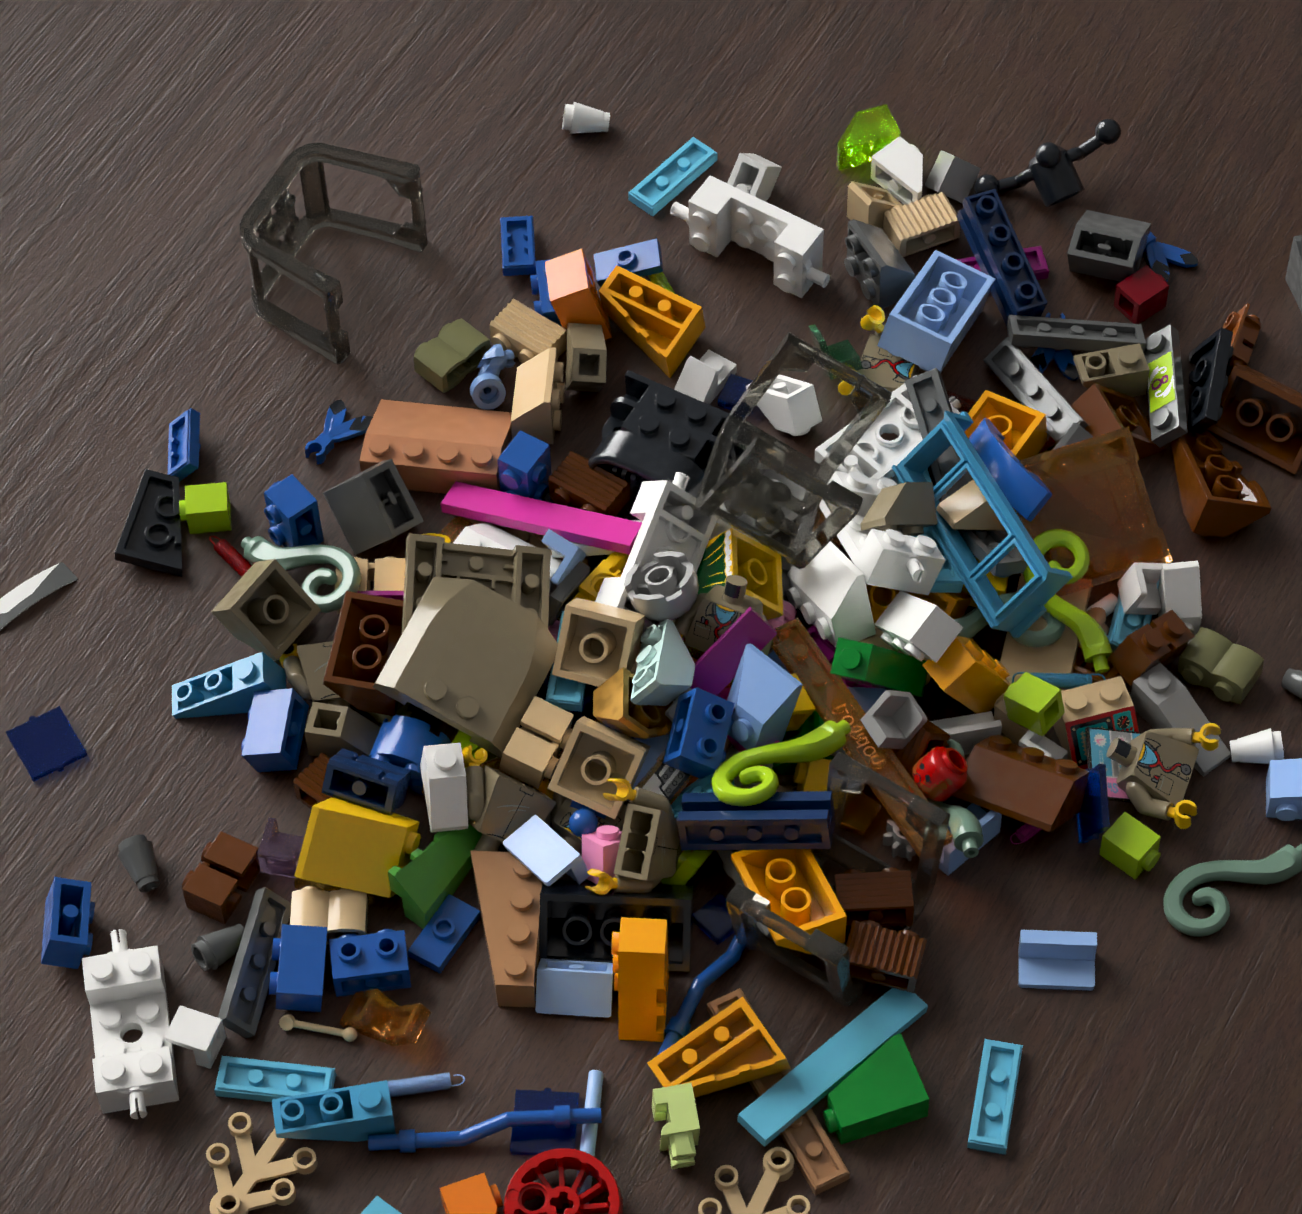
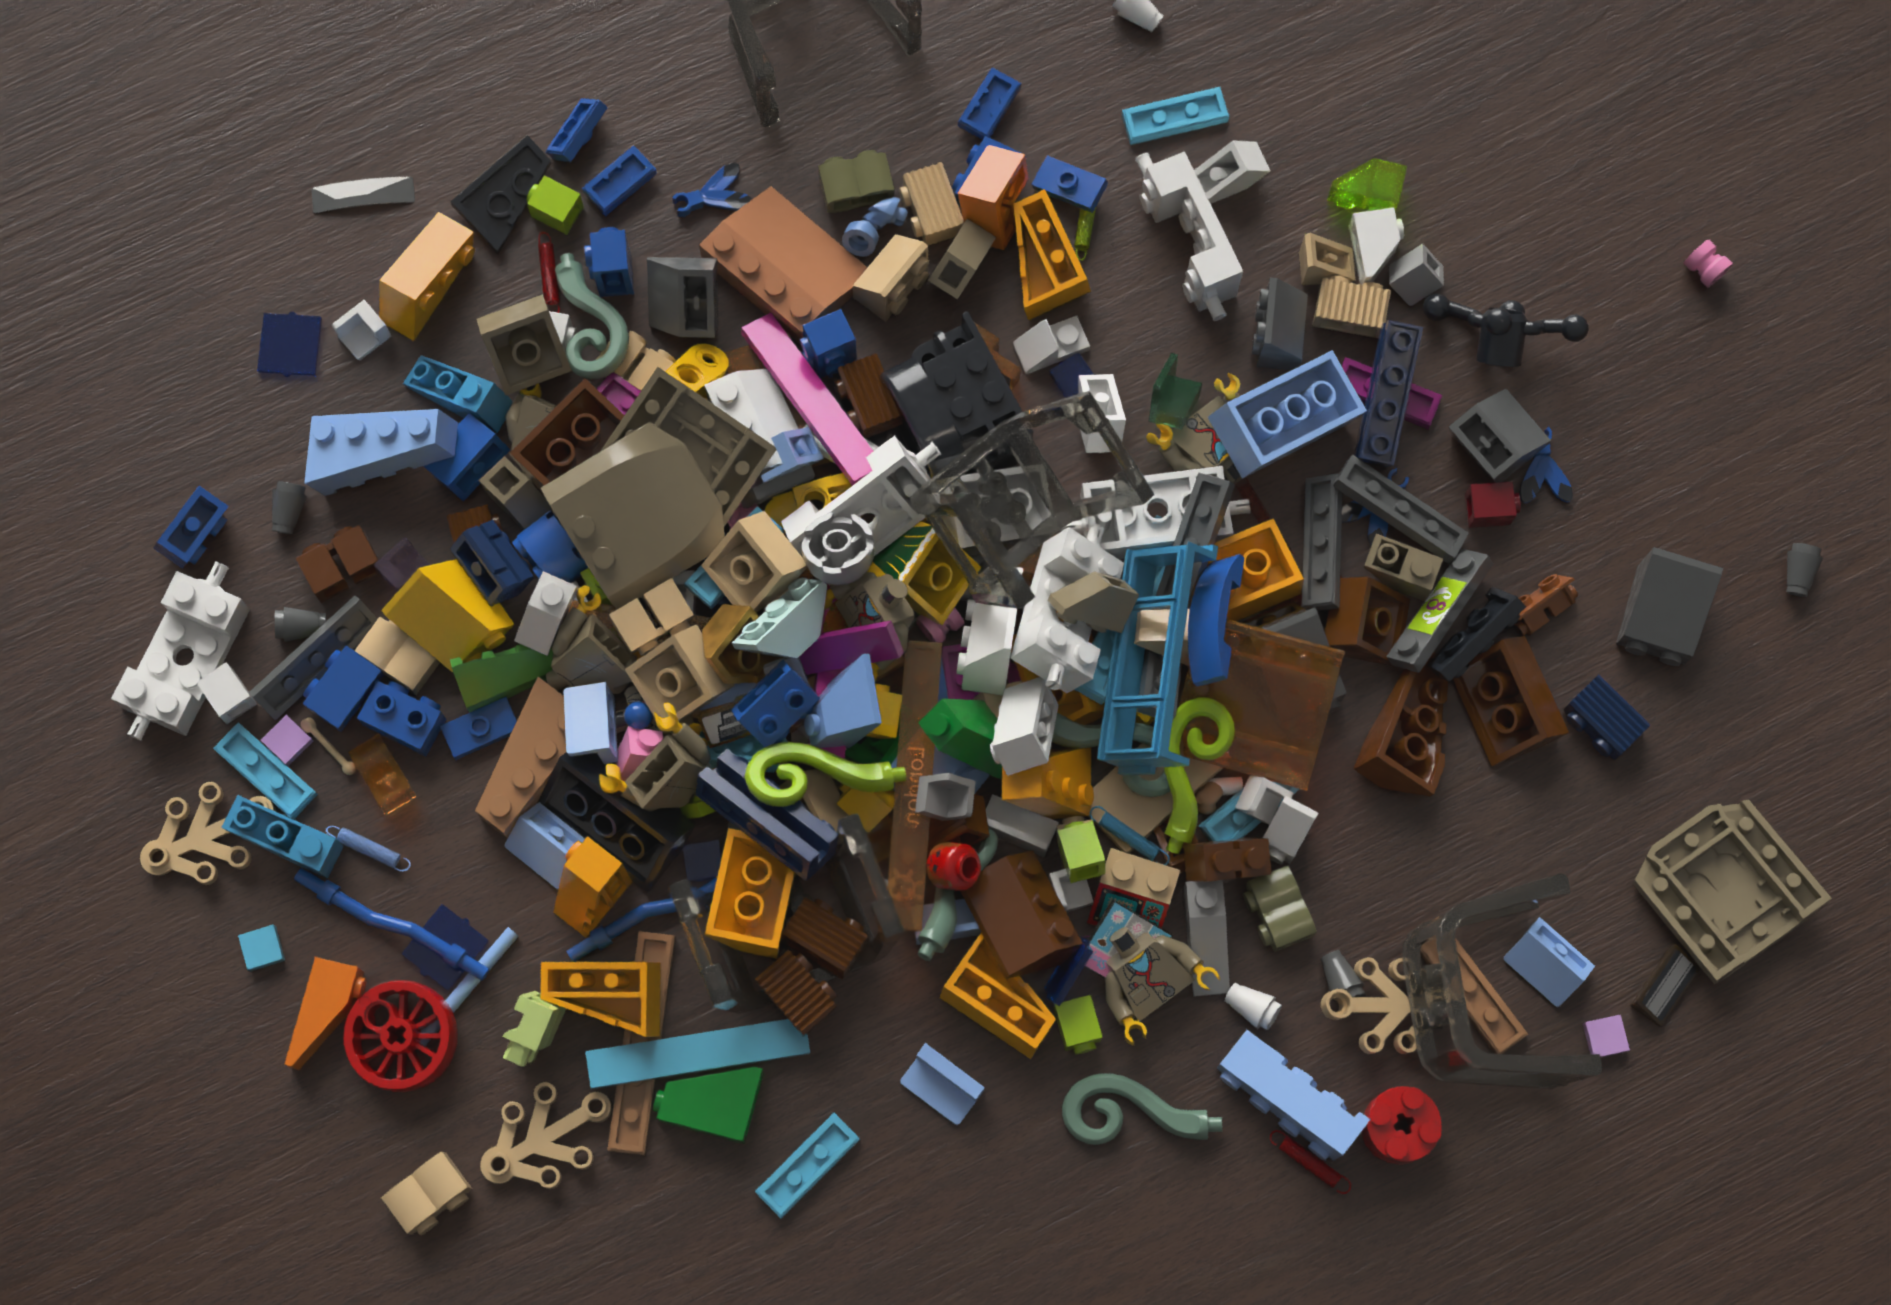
camera: 30 degrees right, 20 degrees up
(106, 692) = (361, 330): none -> white panel
(133, 620) = (424, 275): none -> light orange wedge
(190, 759) = (369, 445): none -> light blue wedge
(249, 462) = (619, 180): none -> blue plate
(277, 1043) = (286, 740): none -> lavender tile
(1053, 863) = (998, 1004): none -> light orange wedge
(1164, 50) = (1710, 265): none -> bright pink wheel

